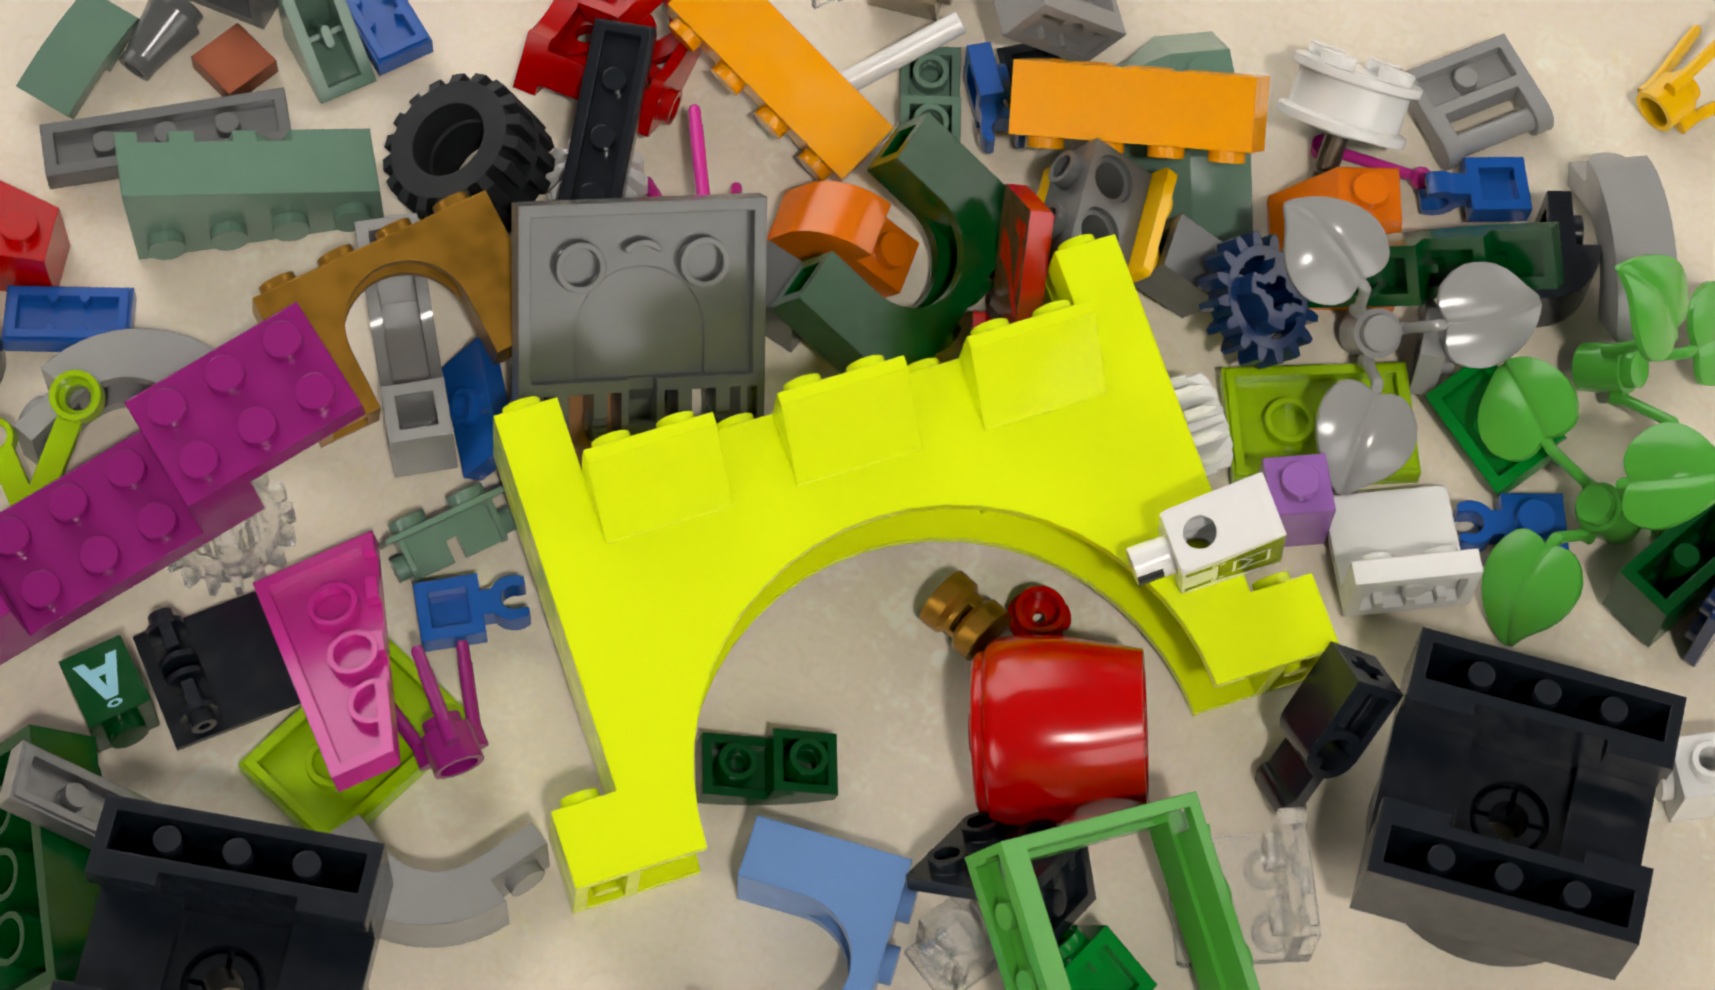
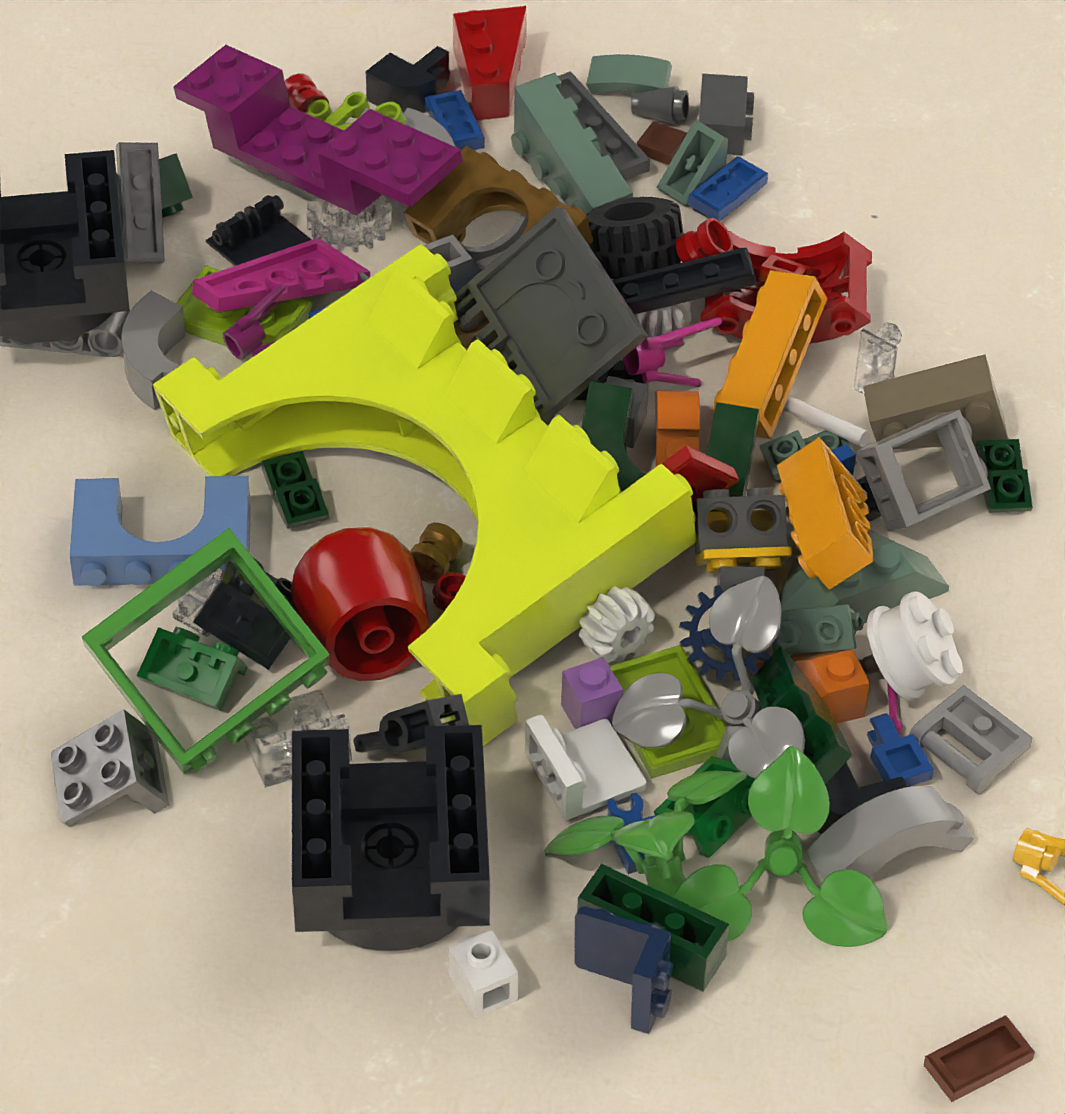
camera: 75 degrees right, 15 degrees down
(110, 694) = (222, 196): dark green brick -> none
(548, 74) = (708, 240): none -> red wheel
(1235, 522) = (482, 576): white torso -> none
(1293, 172) = (818, 629): none -> sand green hinge

